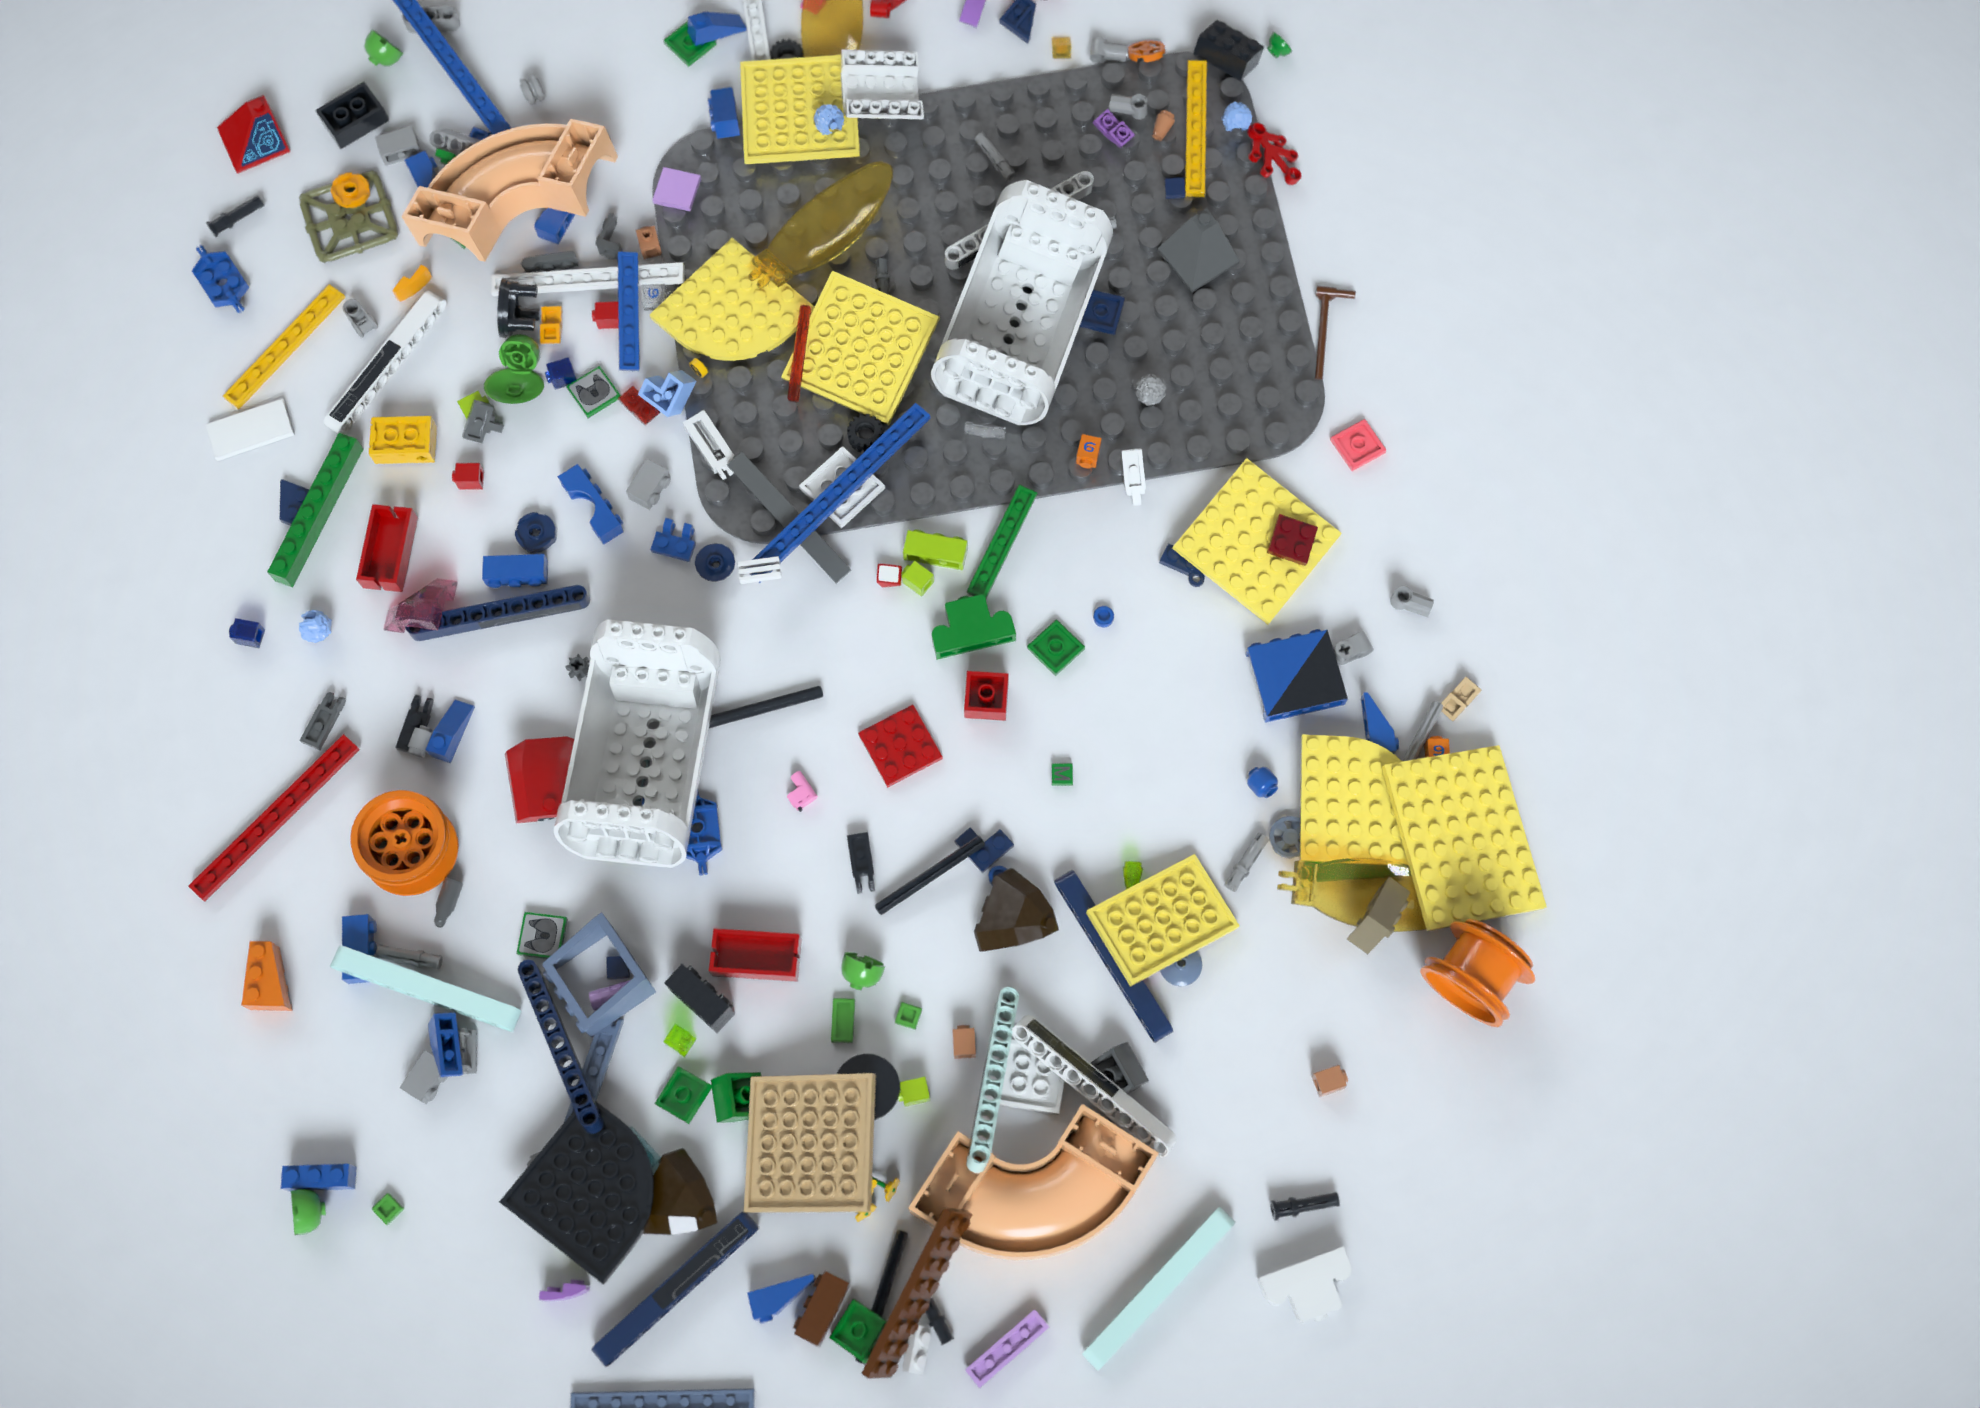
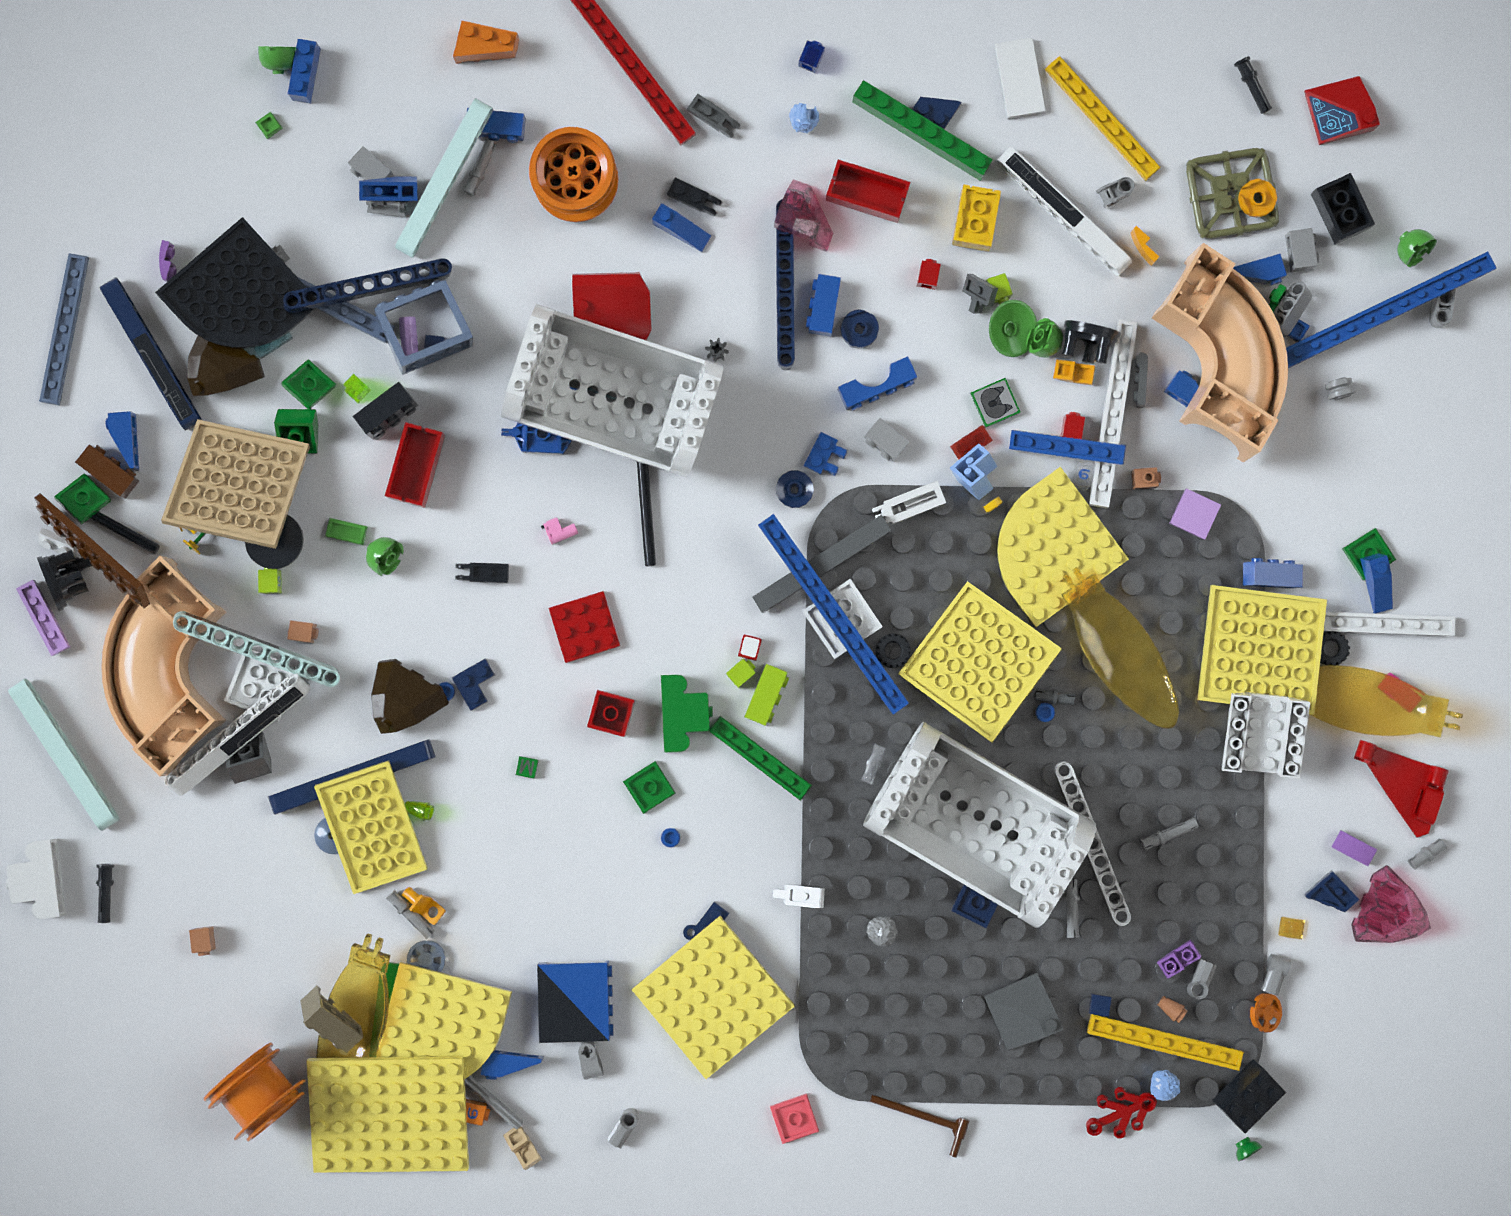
camera: 100 degrees right, 15 degrees up
(212, 269) = (1197, 57): blue plate -> none
(419, 741) = (672, 199): light grey brick -> none
(447, 900) = (523, 205): dark grey piece -> none
(541, 935) = (475, 284): tile -> none
(560, 373) = (1018, 374): clear blue brick -> none
(603, 243) = (1143, 439): dark grey bracket -> none
(759, 562) = (766, 510): white tile -> none
(799, 353) = (984, 602): clear red axle -> none
(828, 118) = (1237, 675): light blue piece -> none
(899, 286) = (1044, 712): none -> blue tile
(908, 1016) = (338, 588): bright green tile -> none
(929, 875) = (456, 630): black axle -> none
(965, 1334) = (61, 587): none -> black piece
(1088, 451) = (830, 857): orange brick -> none
(1232, 851) = (422, 904): none -> light orange bracket
(1262, 782) = (480, 946): blue head -> none
(1292, 540) = (703, 1030): dark red plate -> none

